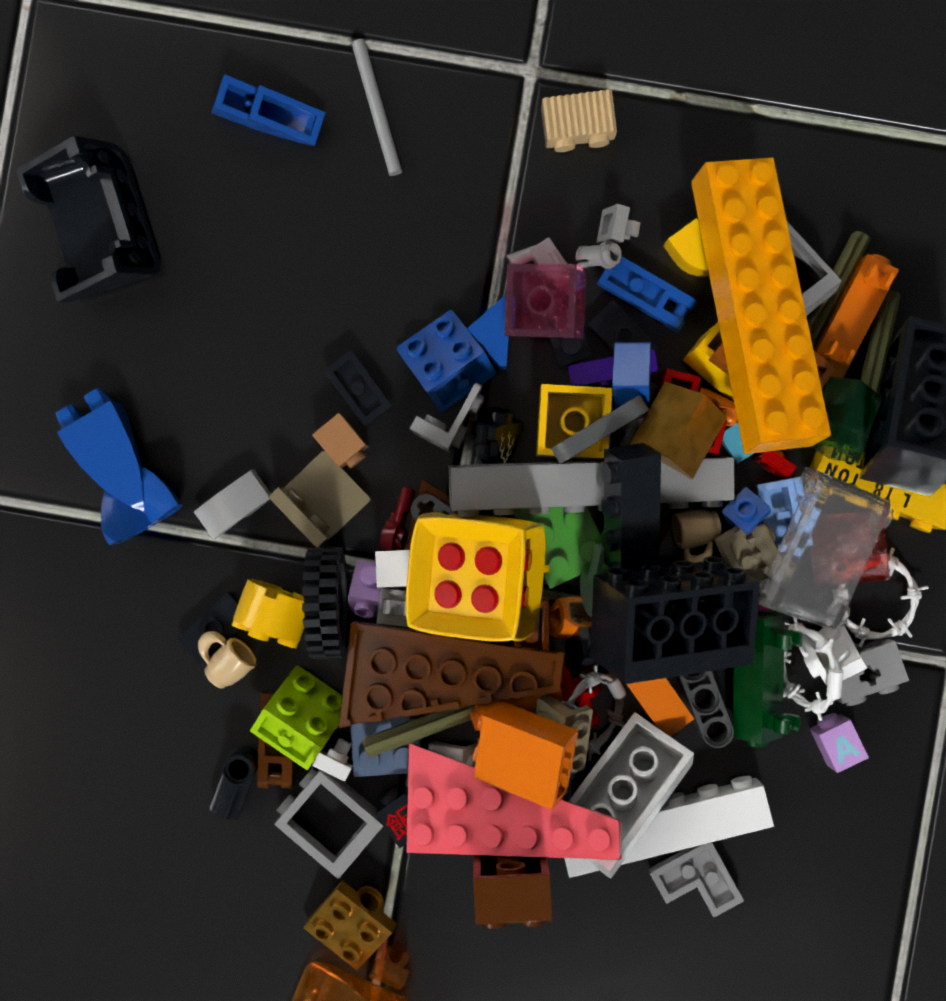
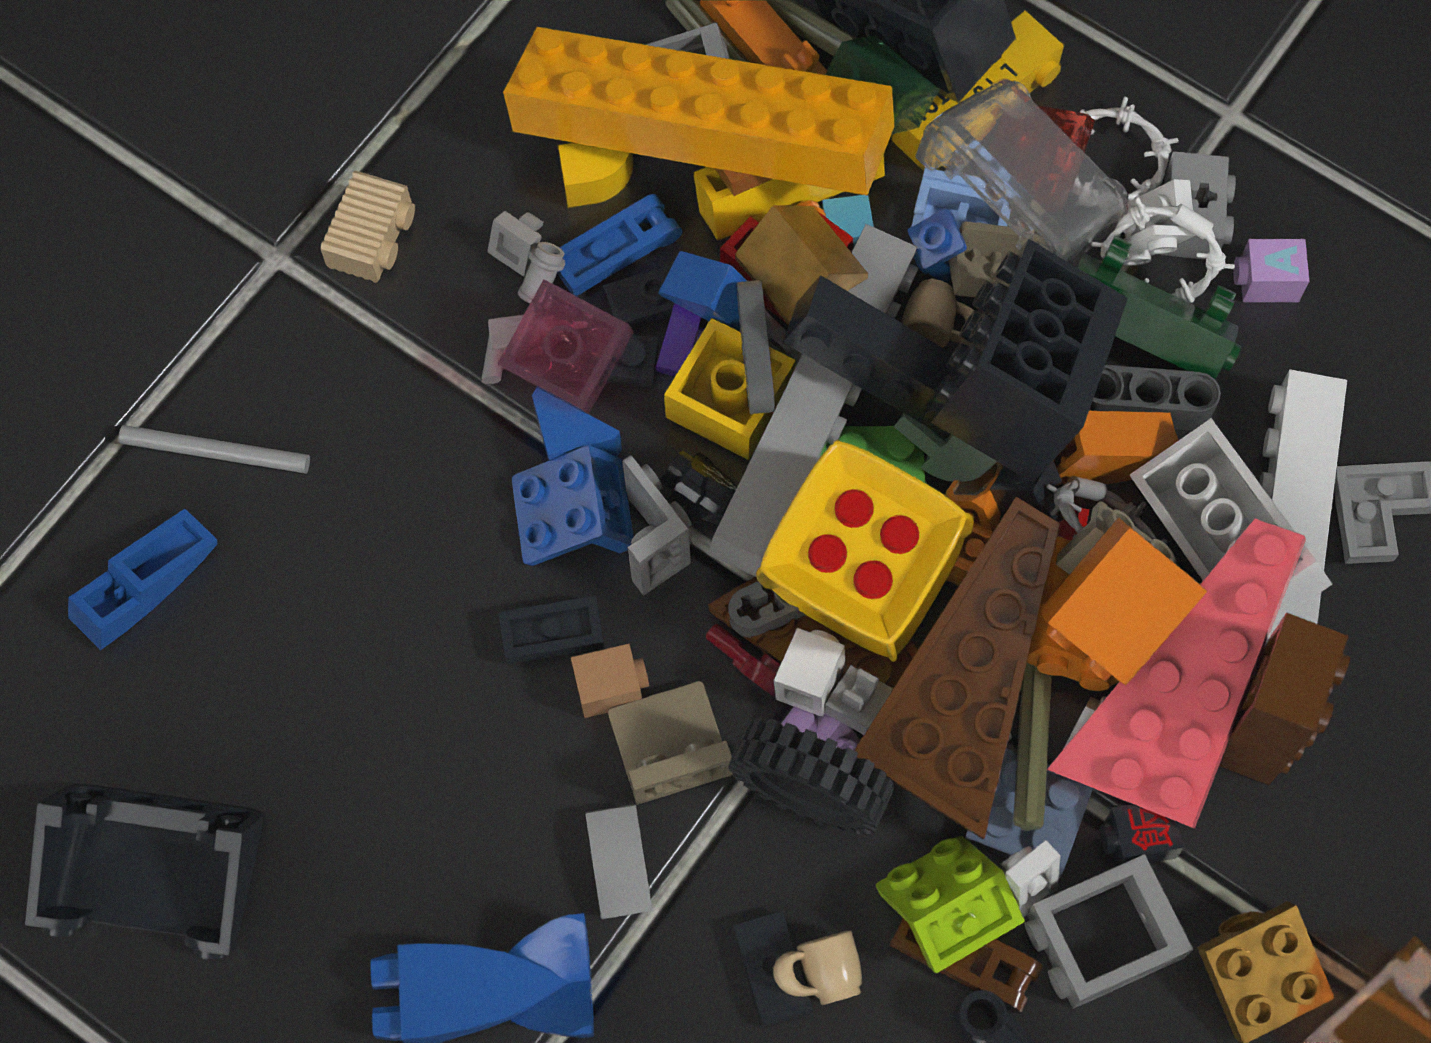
camera: 65 degrees left, 20 degrees down
(270, 612) = (789, 865): yellow brick -> none
(389, 972) = (1353, 952): clear orange tile -> none
(776, 463) = (893, 193): red tile -> none

